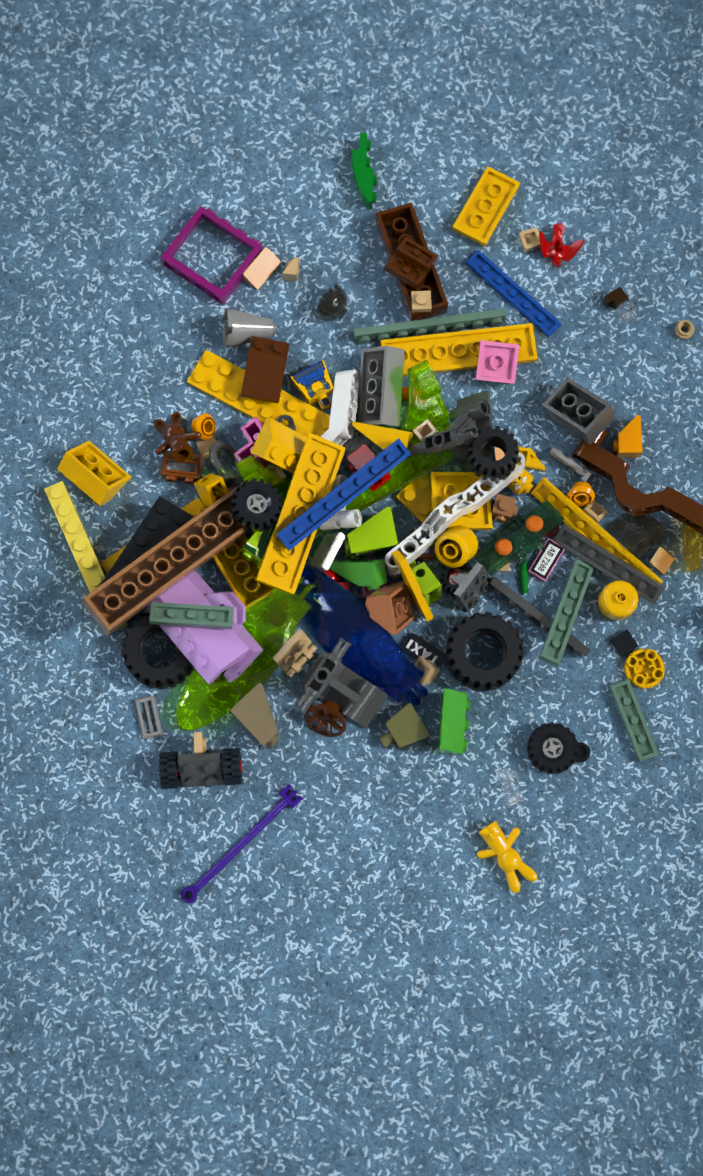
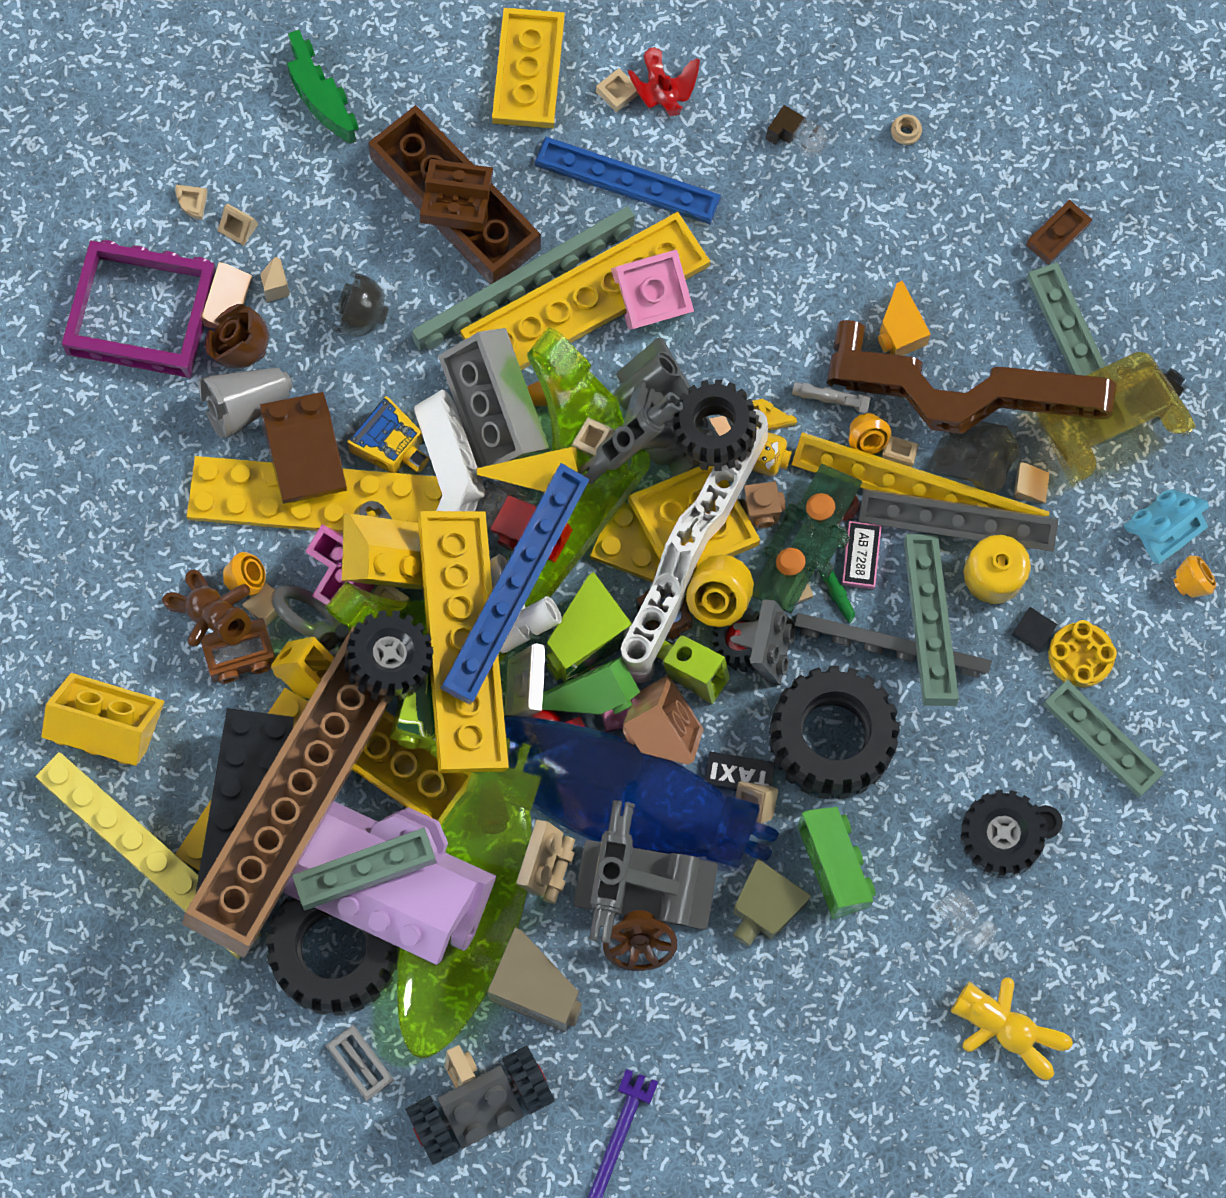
camera: 25 degrees left, 5 degrees down
(257, 294) = (239, 337): none -> reddish brown cylinder
(267, 205) = (192, 200): none -> tan tile
(285, 229) = (236, 224): none -> tan slope
(412, 585) = (681, 677): yellow tile -> none
(421, 301) = (498, 246): tan plate -> none
(578, 410) = (808, 311): dark grey brick -> none

